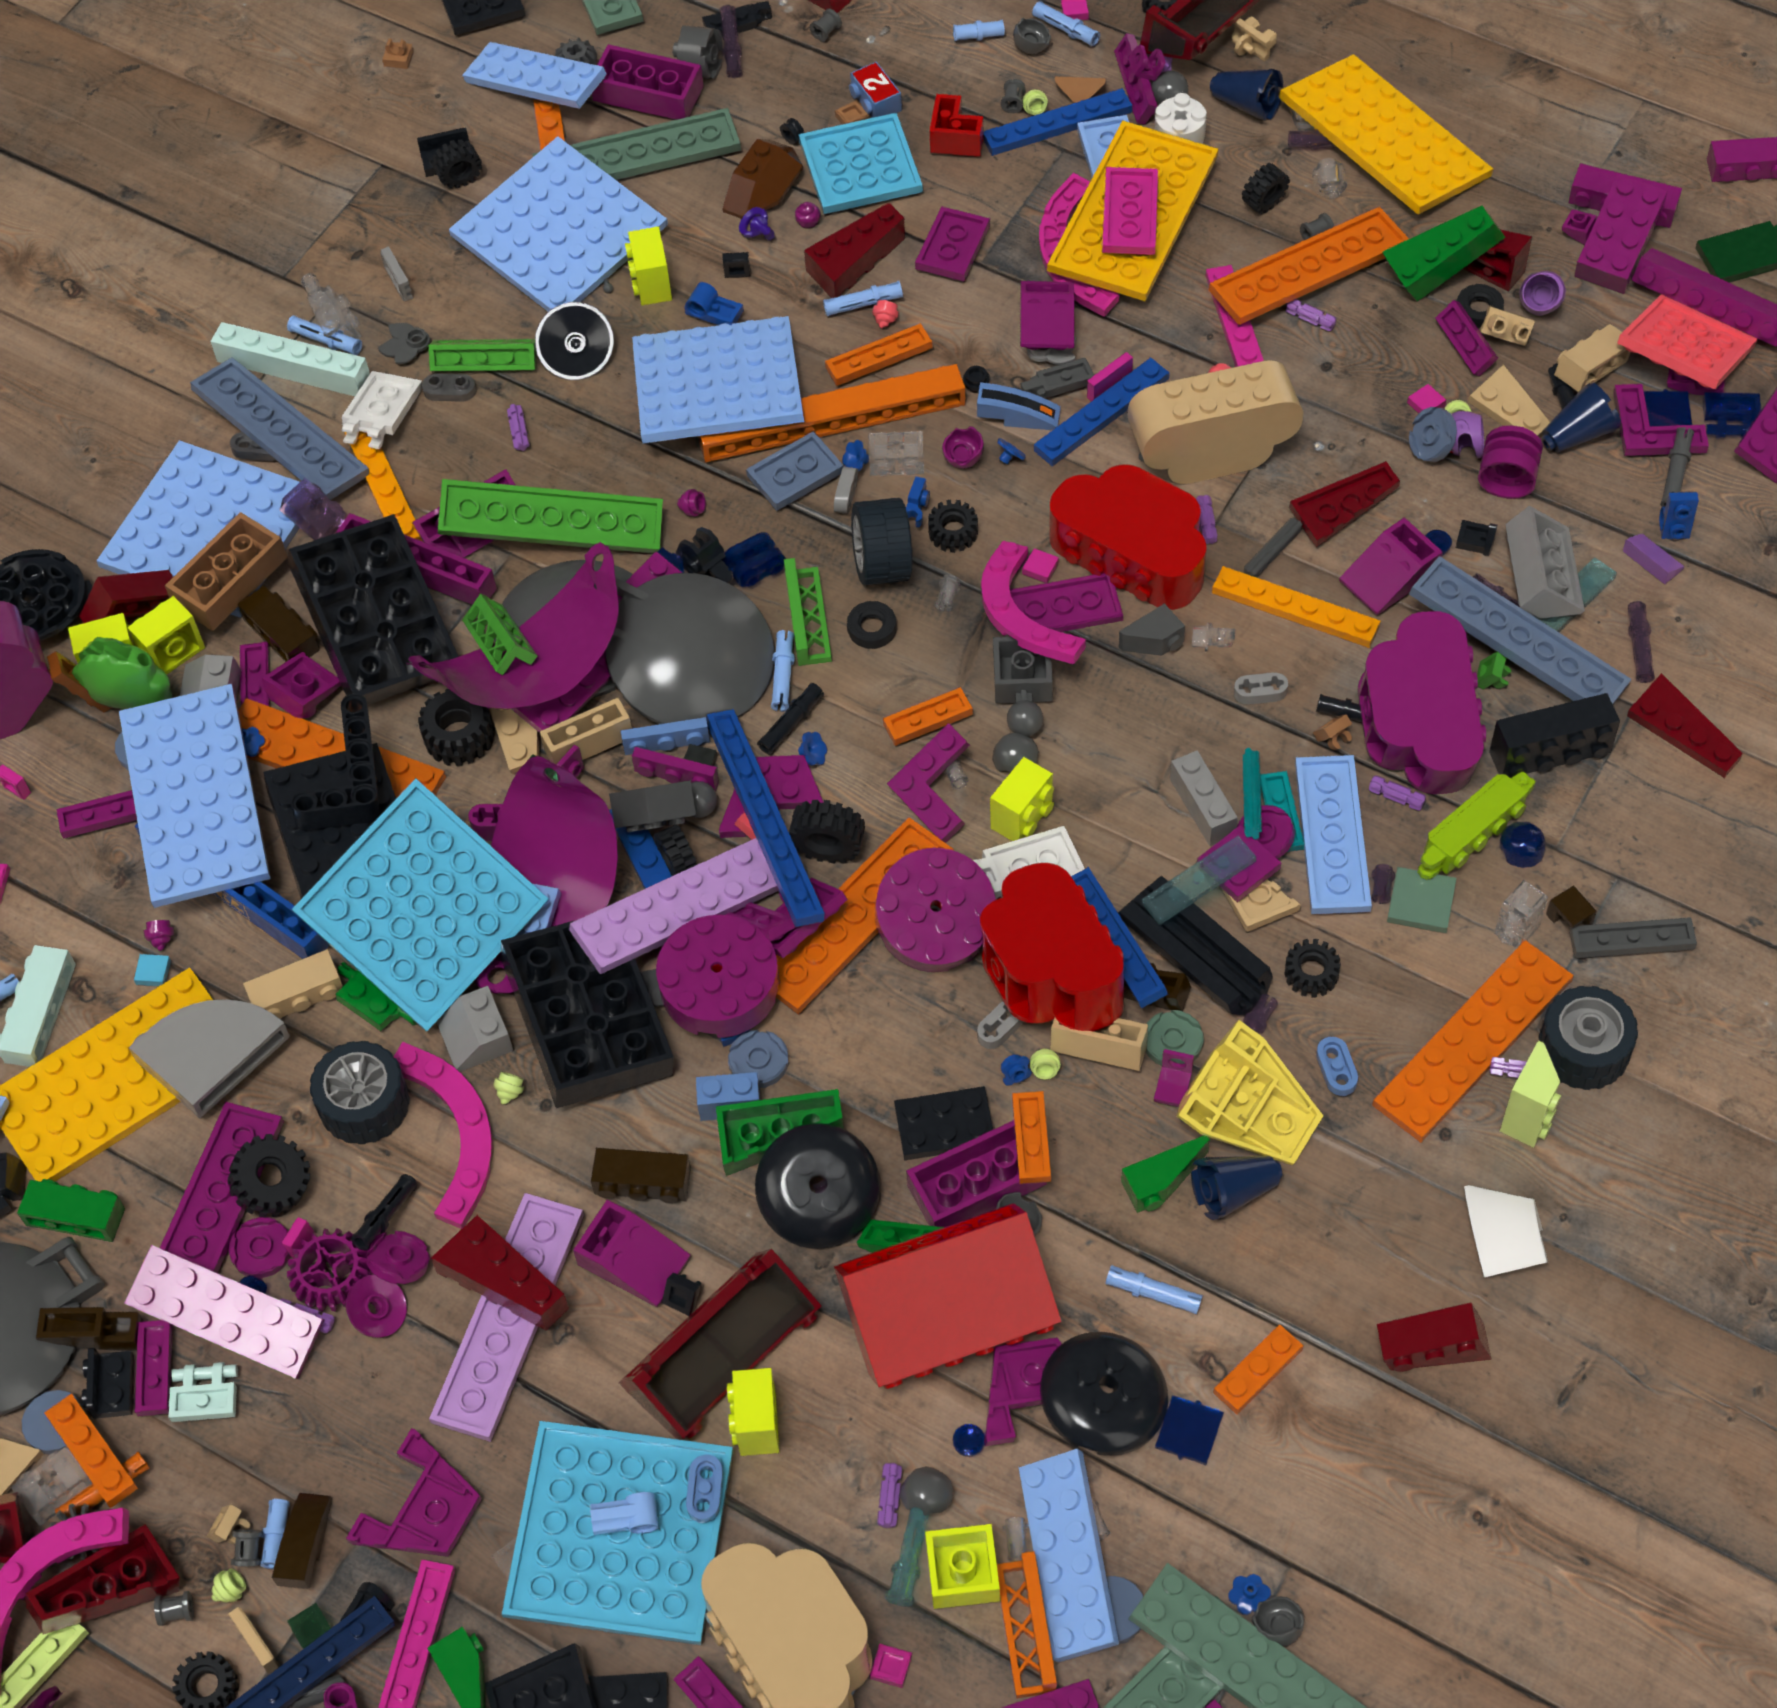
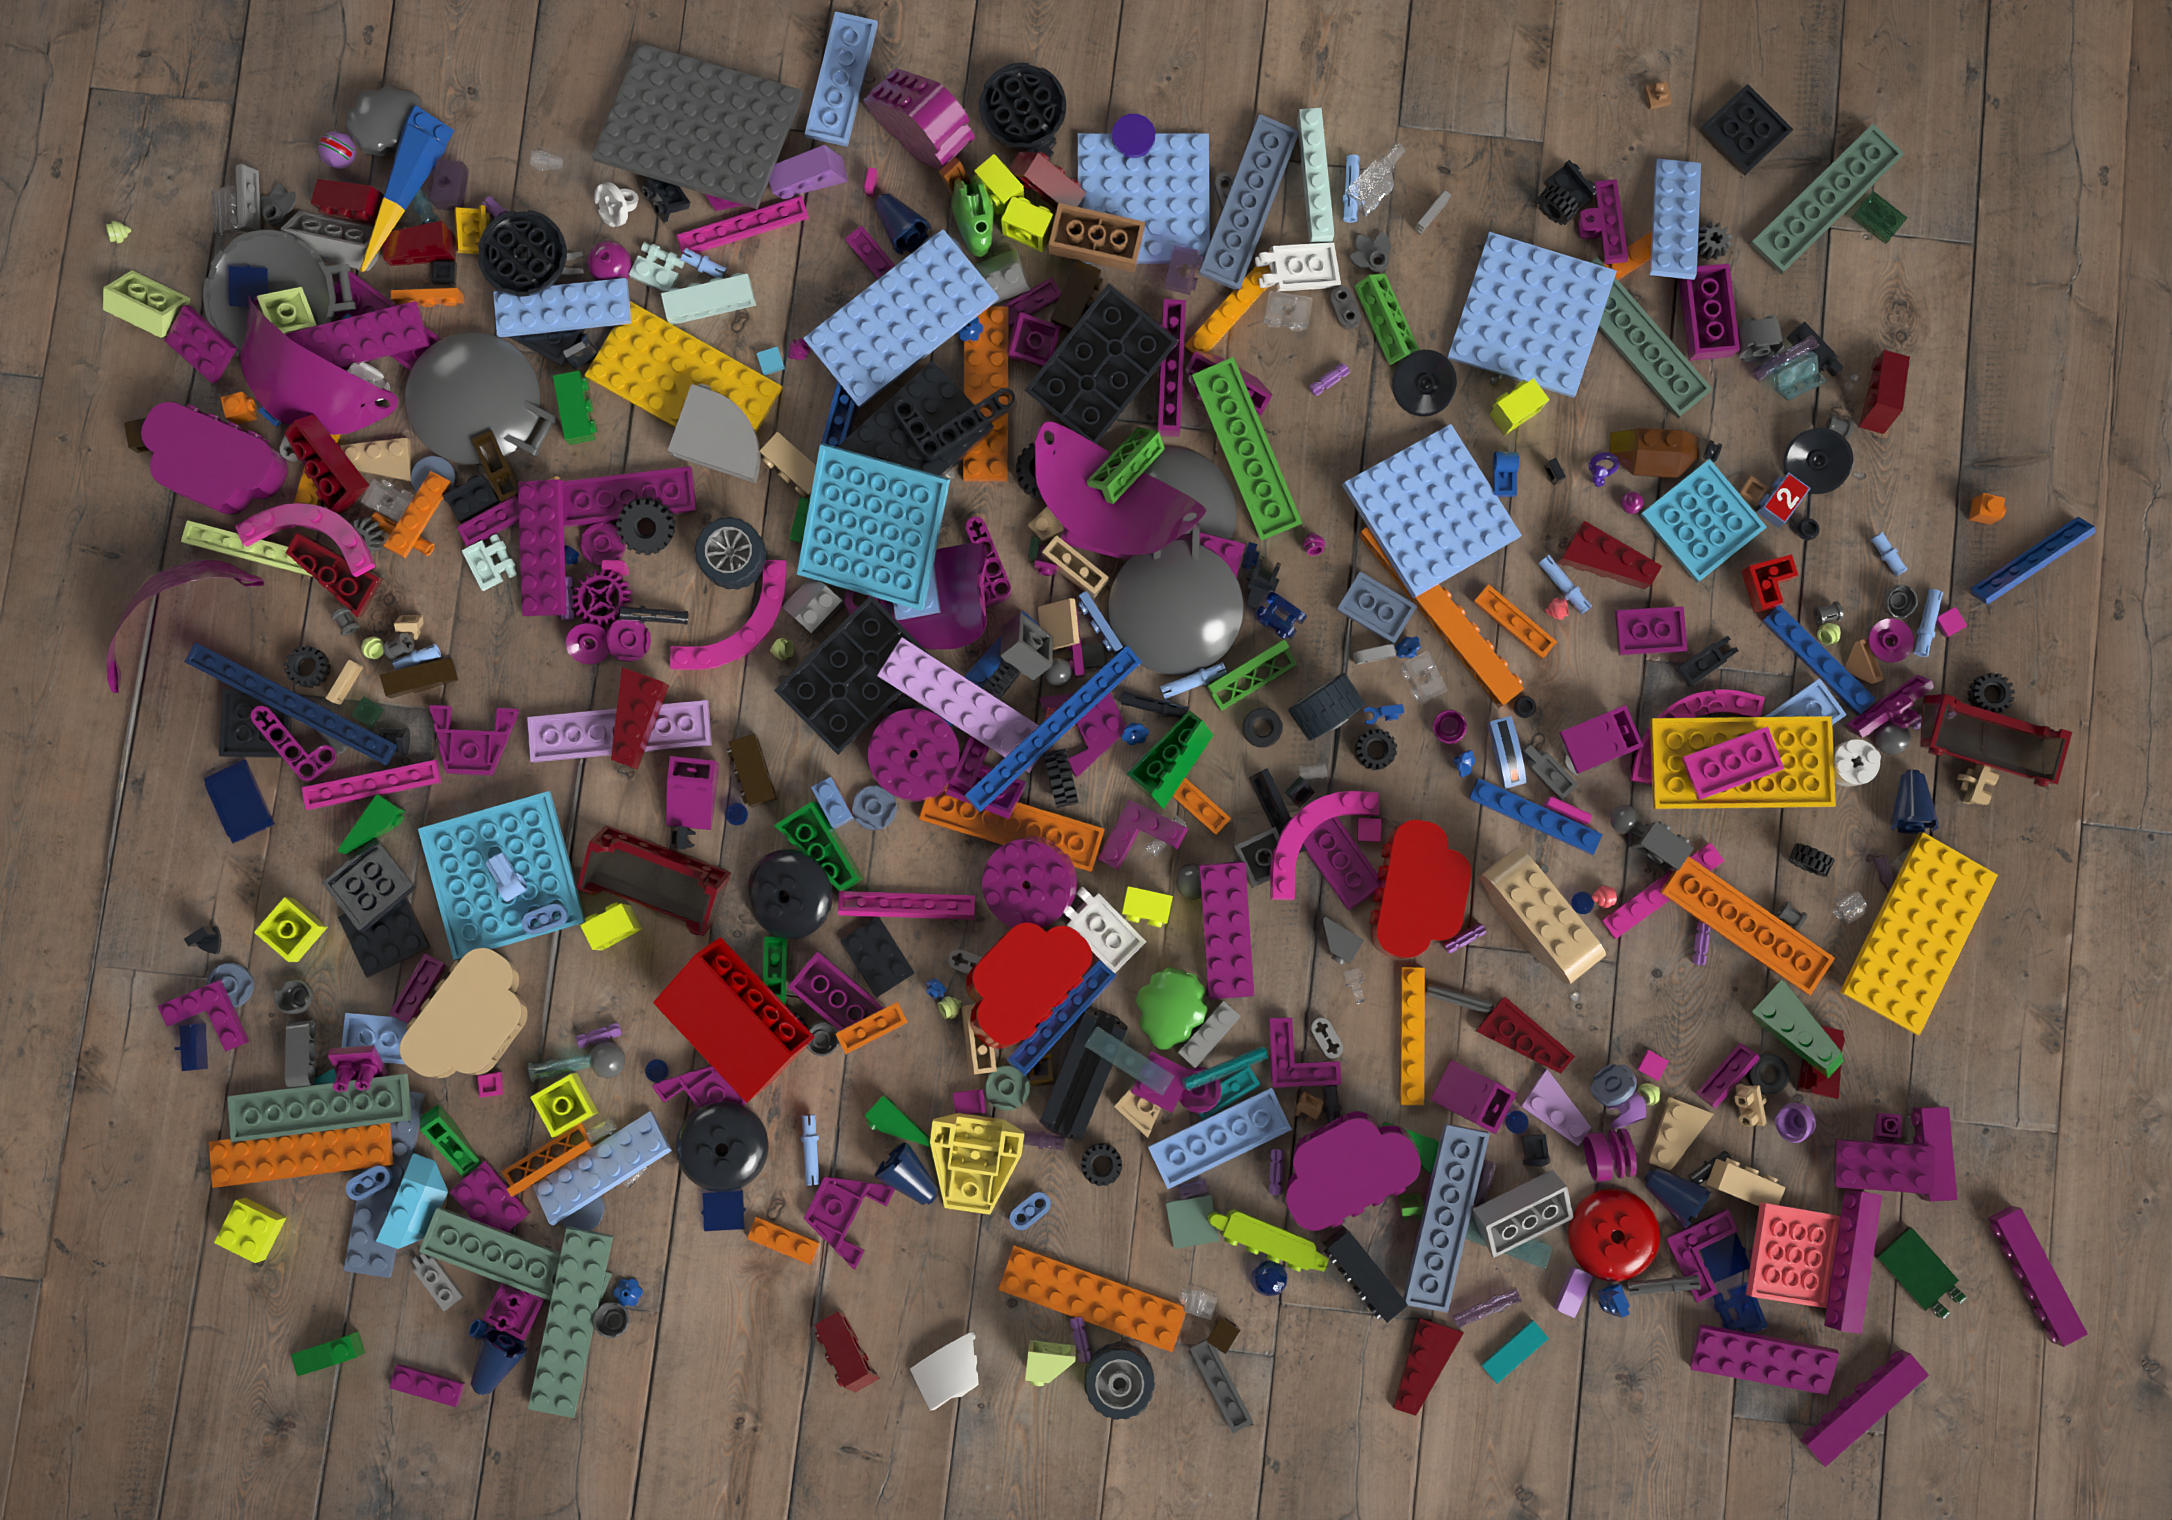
camera: 60 degrees right, 25 degrees up
(80, 765) = (901, 223): none -> dark blue cone
(135, 504) = (1133, 135): none -> dark purple tile
(419, 435) = (1299, 309): none -> clear brick
(498, 133) = (1606, 221): none -> magenta plate
(643, 767) = (1060, 621): none -> tan tile
(685, 1217) = (736, 814): none -> clear blue plate
(756, 39) = (1798, 376): none -> clear light blue bracket
(849, 44) = (1819, 459): none -> black hat
(863, 719) = (1171, 759): none -> green wedge
(896, 1062) = (906, 905): none -> dark pink plate
(917, 84) = (1807, 529): none -> black plate
(958, 642) = (1271, 801): none -> black plate
(964, 612) = (1299, 792): none -> black tile
(1010, 211) = (1705, 662): none -> black hinge
(1068, 56) = (1899, 635): none -> magenta dish
(1089, 732) = (1226, 930): none -> magenta plate
(1154, 821) = (1171, 1007): none -> bright green piece
(1184, 309) = (1652, 840): none -> dark grey brick
(1244, 1288) = (836, 1208): none -> magenta wing
(1275, 740) = (1283, 1066): none -> magenta plate
(1438, 503) = (1555, 1109): none -> lavender wing
(1609, 519) = (1592, 1229): none -> red brick
(1702, 635) = (1514, 1351): none -> teal tile

